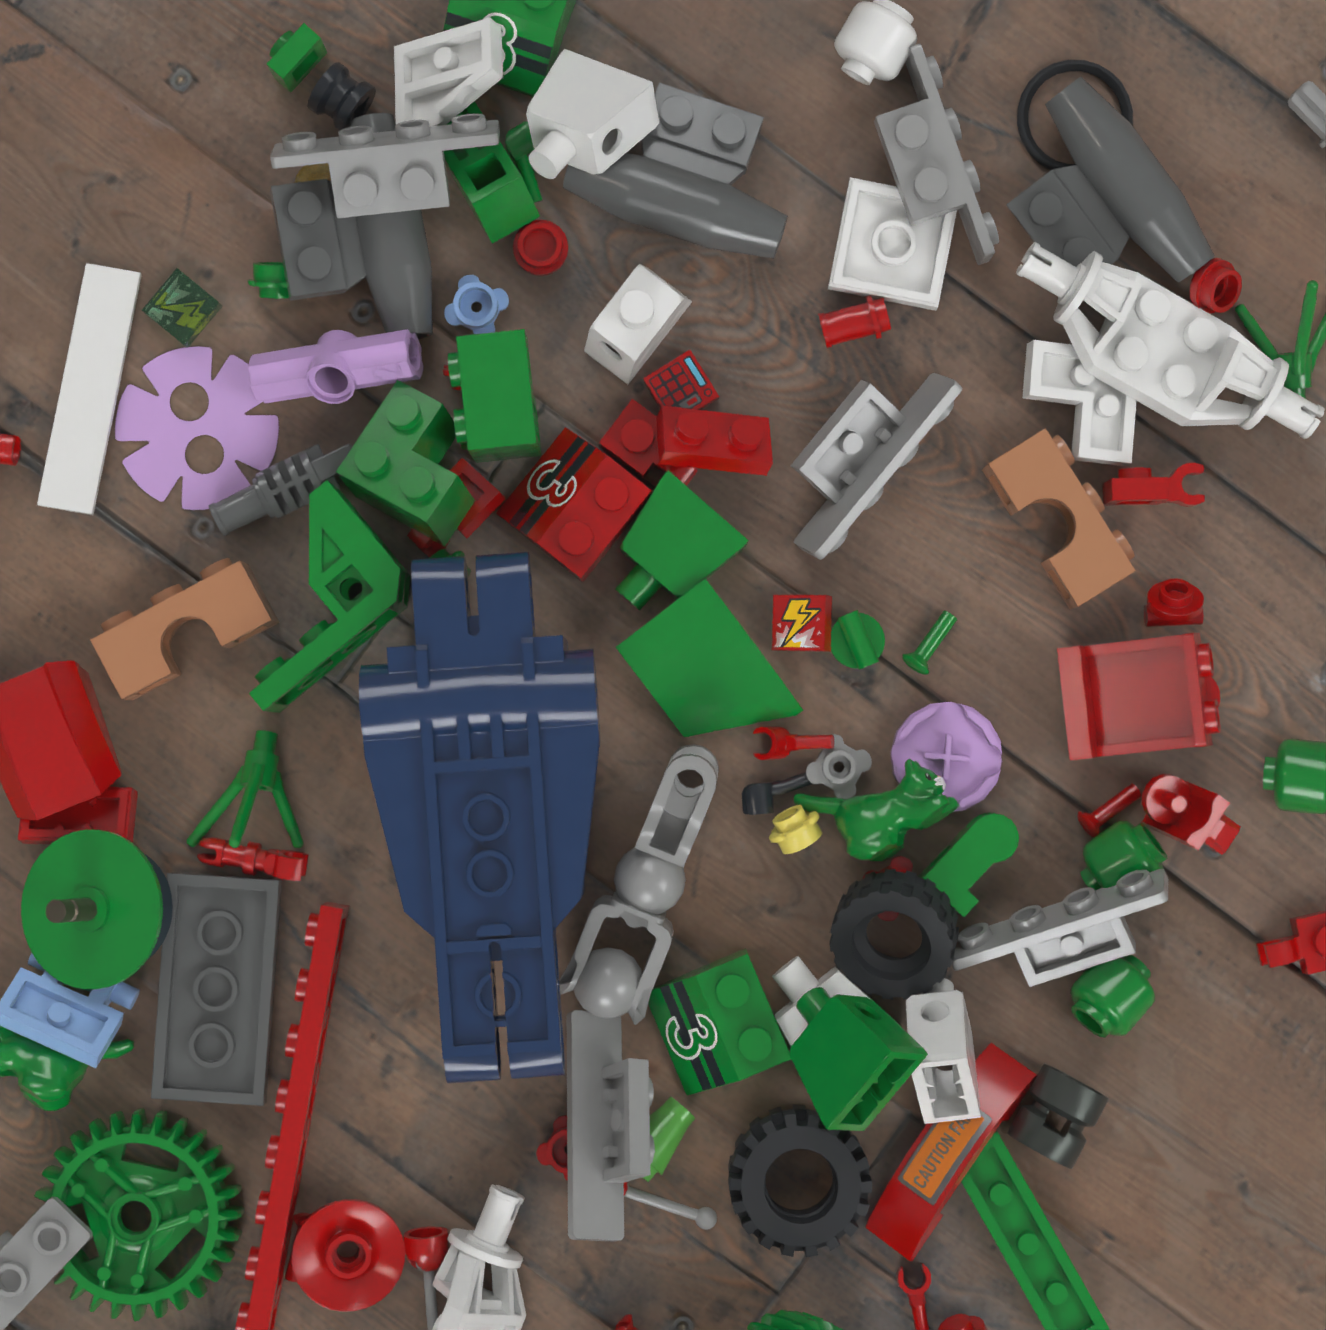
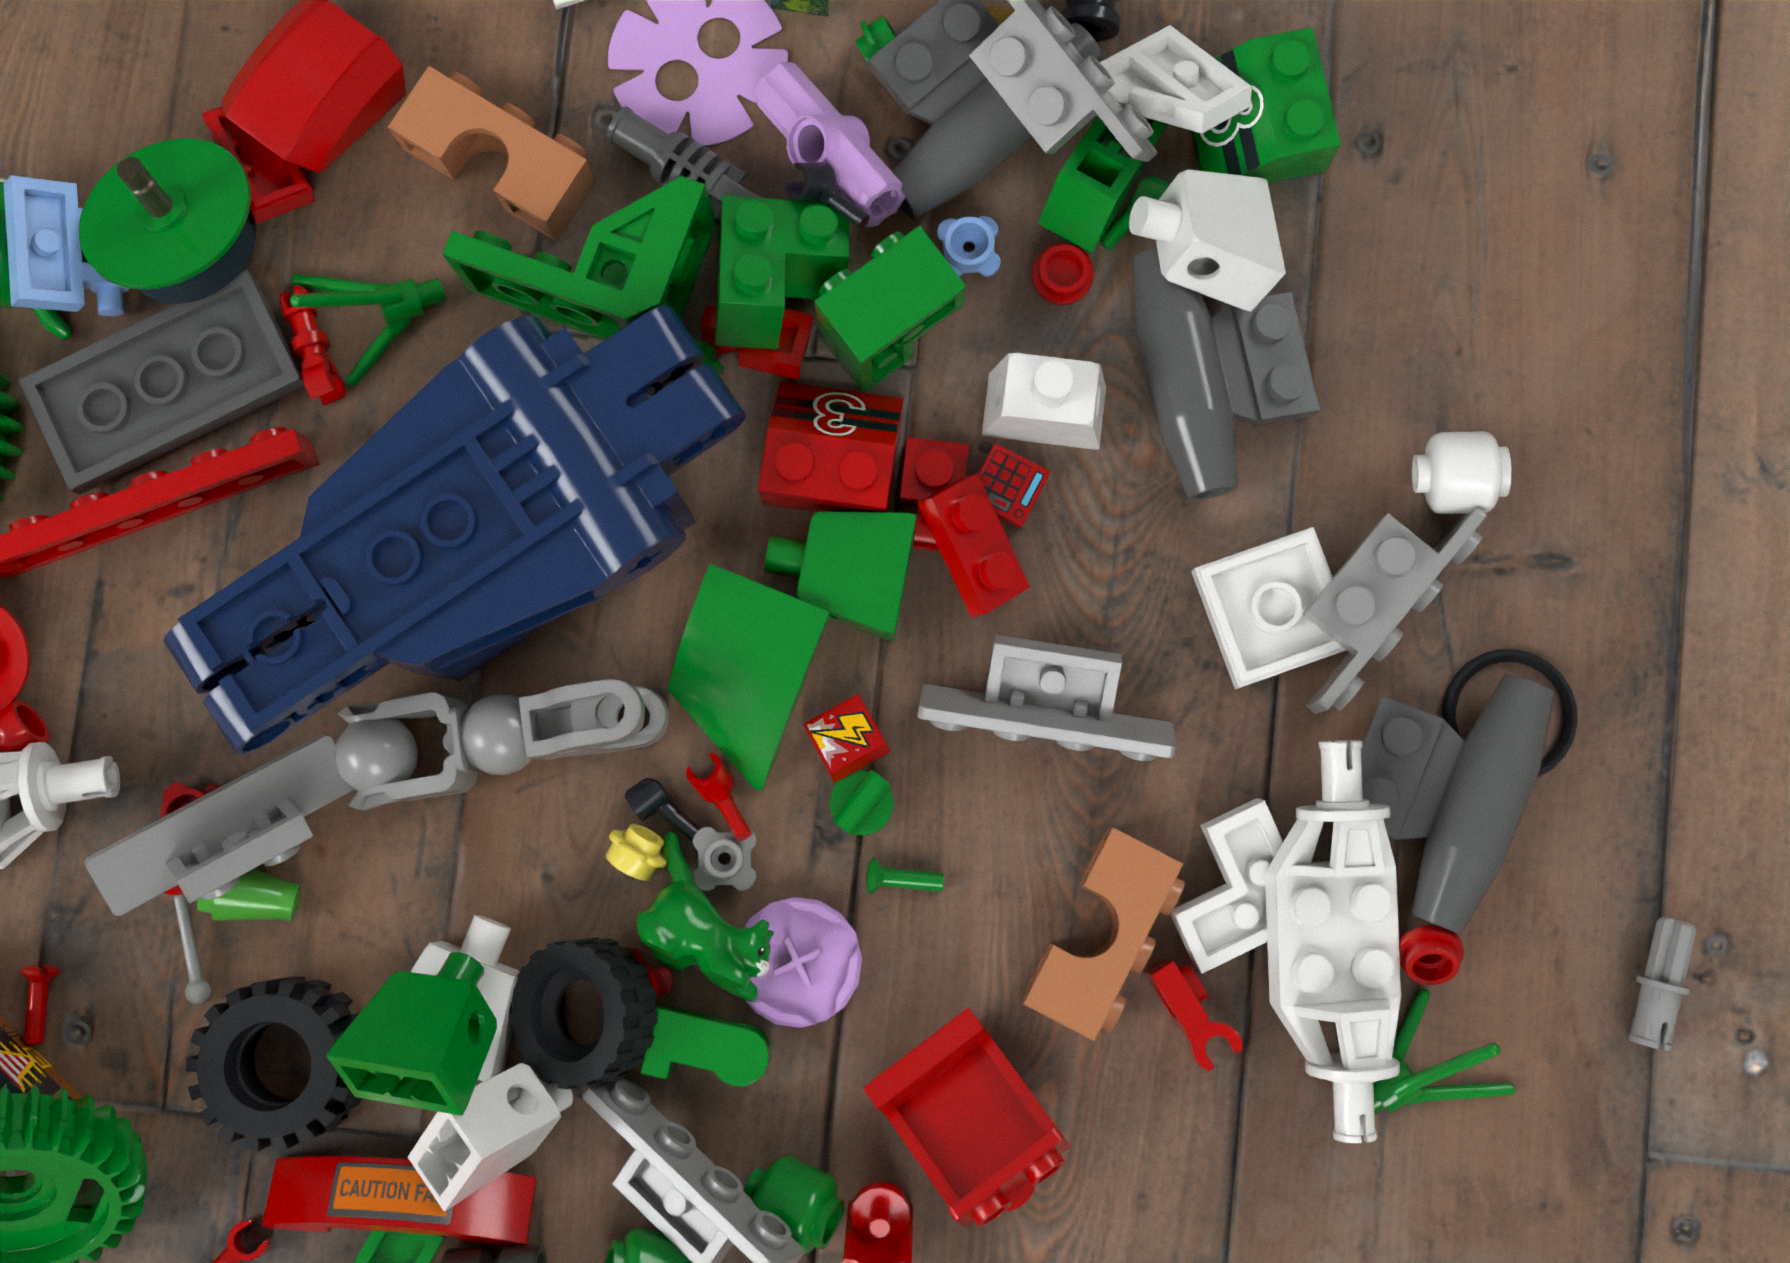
camera: 60 degrees right, 5 degrees down
(372, 391) = (820, 186): none -> black hand
(718, 1024) = (399, 889): green slope -> none
(855, 322) = (1174, 616): red pin -> none
(1093, 821) = (818, 1150): red piece -> none
(1173, 604) = (1086, 1102): red plate -> none

